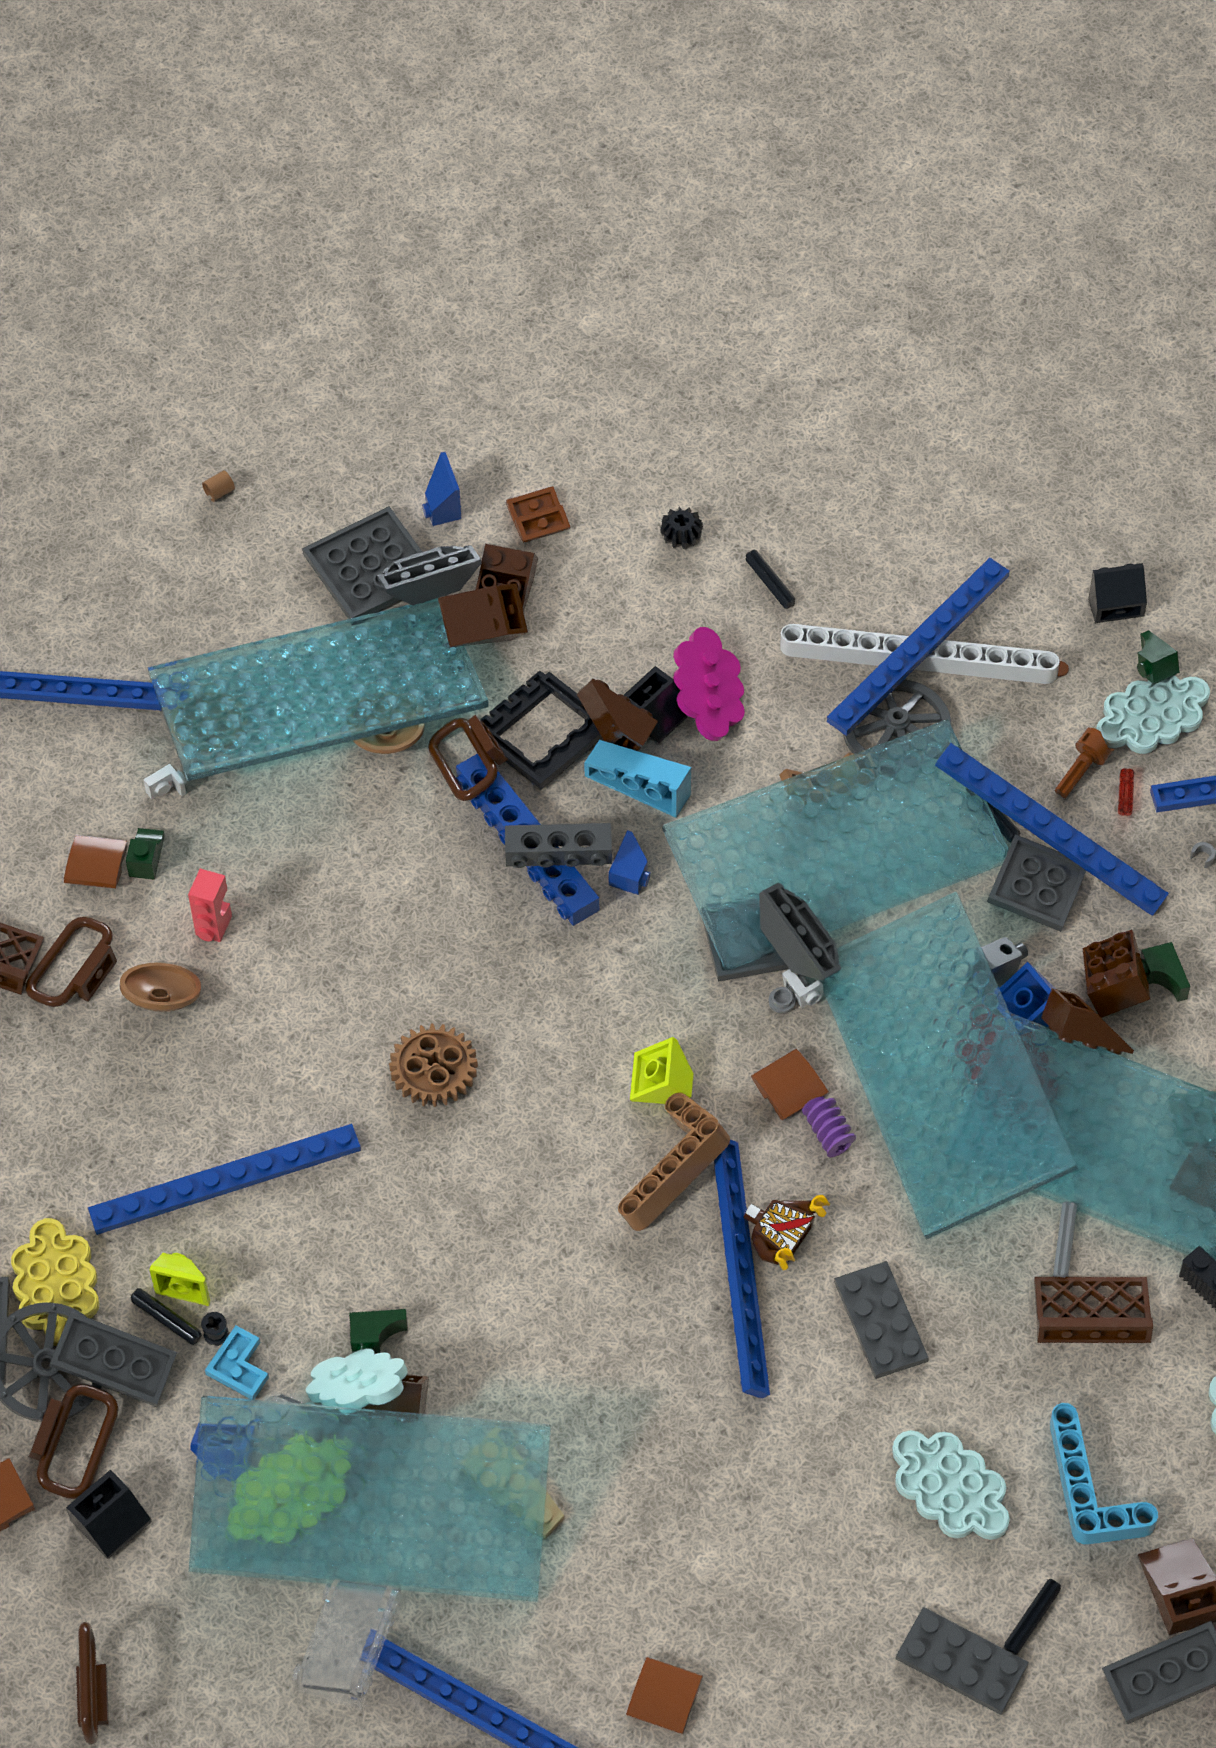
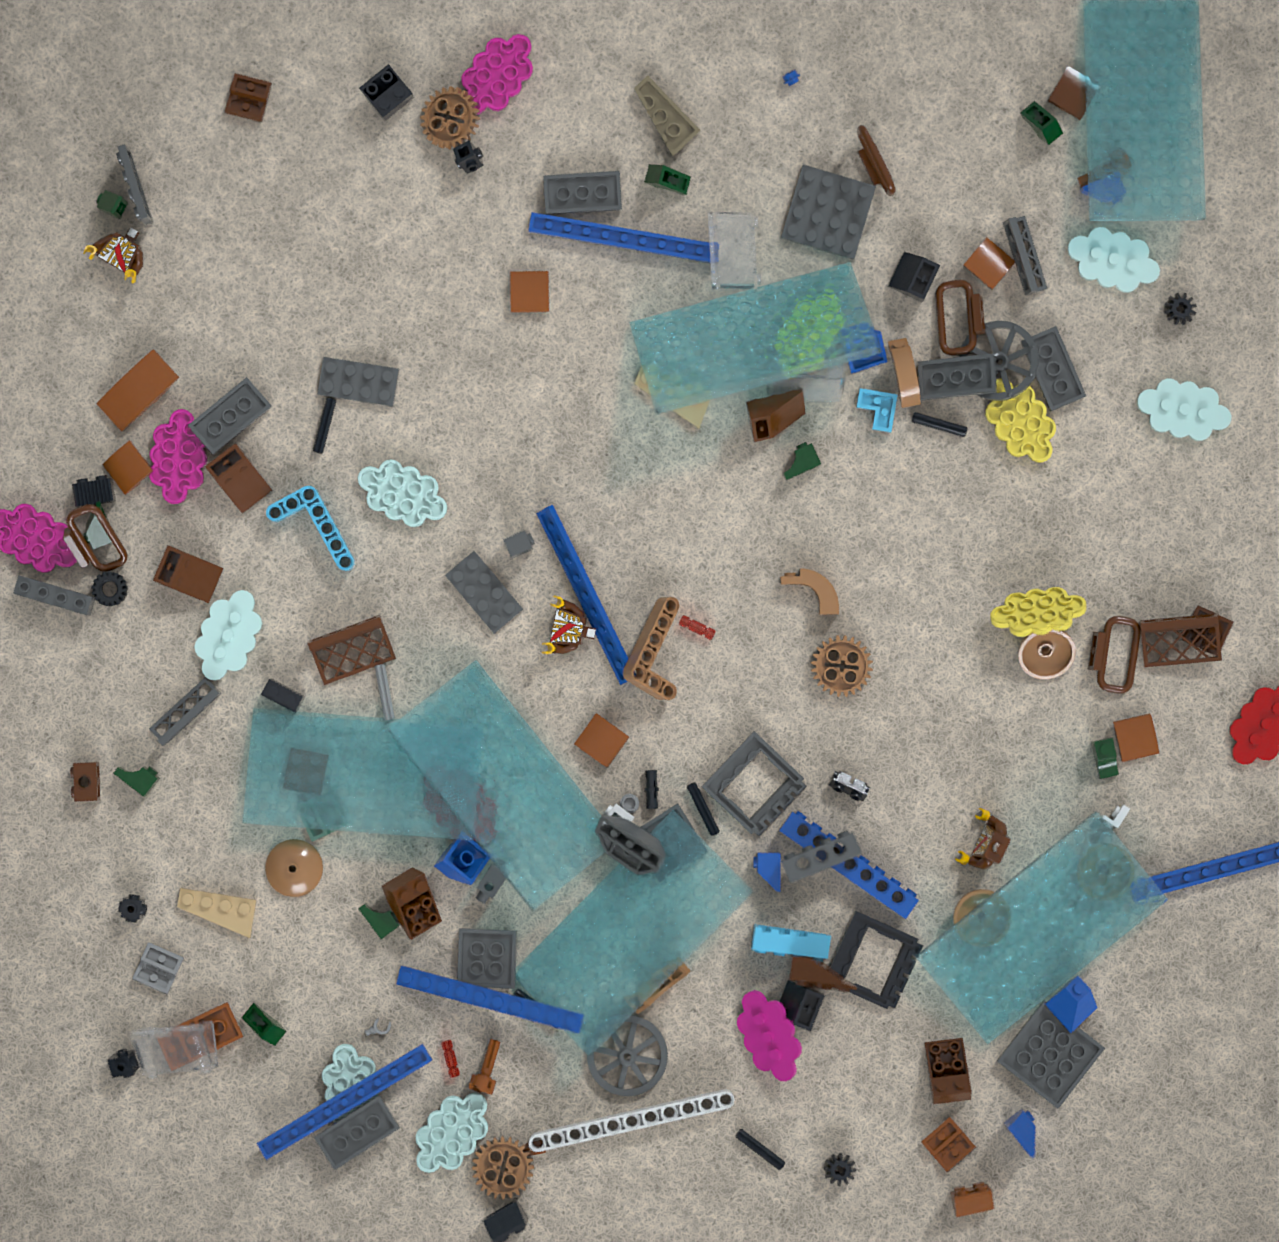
camera: 160 degrees right, 30 degrees up
(147, 1034) = (1038, 611): none -> light yellow plate
(178, 1395) = (905, 372): none -> medium nougat arch
(179, 1278) = (941, 450): neon yellow slope -> none
(188, 1653) = (828, 212): none -> dark grey plate
(207, 906) = (1038, 720): coral arch -> none
(216, 1320) = (898, 425): black bush -> none
(218, 485) = (1190, 1082): medium nougat beam -> none
(224, 1179) = (944, 534): blue plate -> none
(320, 603) = (1072, 1003): none -> blue slope
(336, 798) = (991, 844): none -> reddish brown torso
(357, 1380) = (794, 412): light aqua plate -> none
(424, 1179) = (820, 585): none -> medium nougat arch
(430, 573) = (1003, 1053): dark grey wedge -> none
(483, 616) = (948, 1028): reddish brown slope -> none
(483, 743) = (904, 922): reddish brown bar -> none
(493, 932) = (857, 790): none -> black hinge
(535, 449) = (972, 1199): none -> dark orange slope
(605, 1177) = (697, 627): none -> clear red axle
(612, 1002) = (734, 766): none -> dark grey hinge
(660, 1073) = (688, 714): neon yellow slope -> none
(687, 963) = (703, 809): none -> black axle
(746, 1006) = (651, 789): none -> black pin
(809, 1353) = (519, 543): none -> dark grey brick
(829, 1125) = (563, 716): medium lavender piece -> none
(917, 646) = (631, 1120): blue plate -> none
(1077, 1021) = (418, 846): reddish brown slope -> none
(1082, 643) = (486, 1163): none -> medium nougat gear
(1156, 659) = (460, 1172): dark green arch -> none

